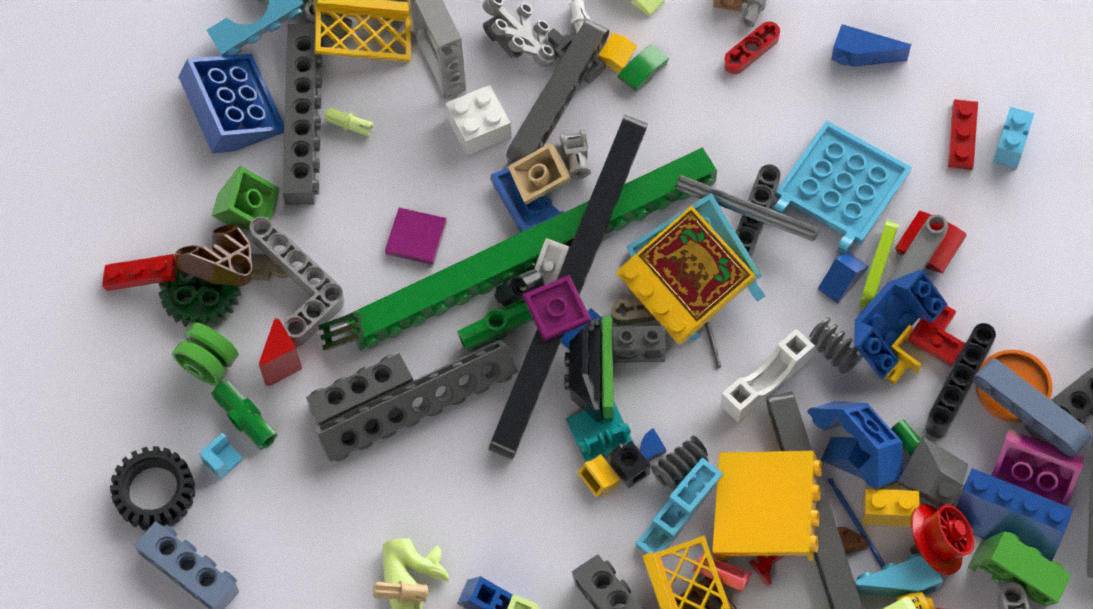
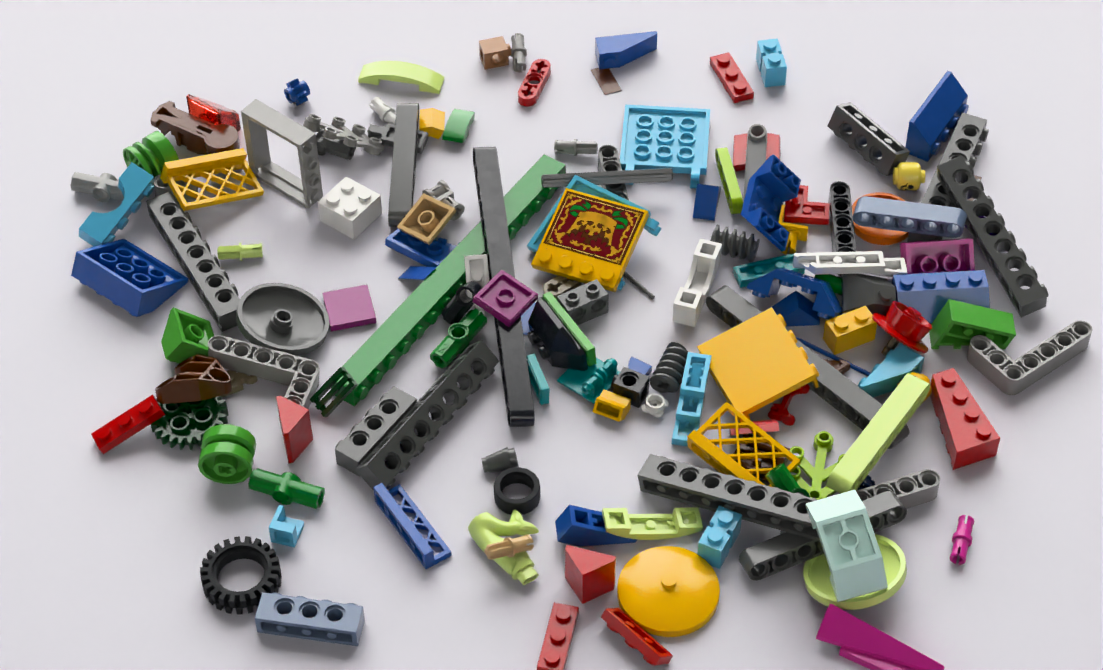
camera: 30 degrees left, 15 degrees down
(326, 512) = (408, 528): none -> fence
(340, 223) = (282, 318): none -> dark grey dish
(447, 507) = (515, 476): none -> black tyre
(457, 484) = (500, 460): none -> dark grey cone
(500, 228) = (417, 272): none -> blue sticker
(544, 409) = (538, 380): none -> teal tile
(643, 488) = (655, 405): none -> white plate
(745, 149) = (575, 147): none -> light grey axle
(829, 77) = (606, 80): none -> sticker
(851, 389) = (751, 271): none -> teal tile
(935, 434) = (850, 263): none -> white wedge
(1056, 284) = (867, 138): none -> dark grey brick
(1072, 349) = (908, 176): none -> light yellow head

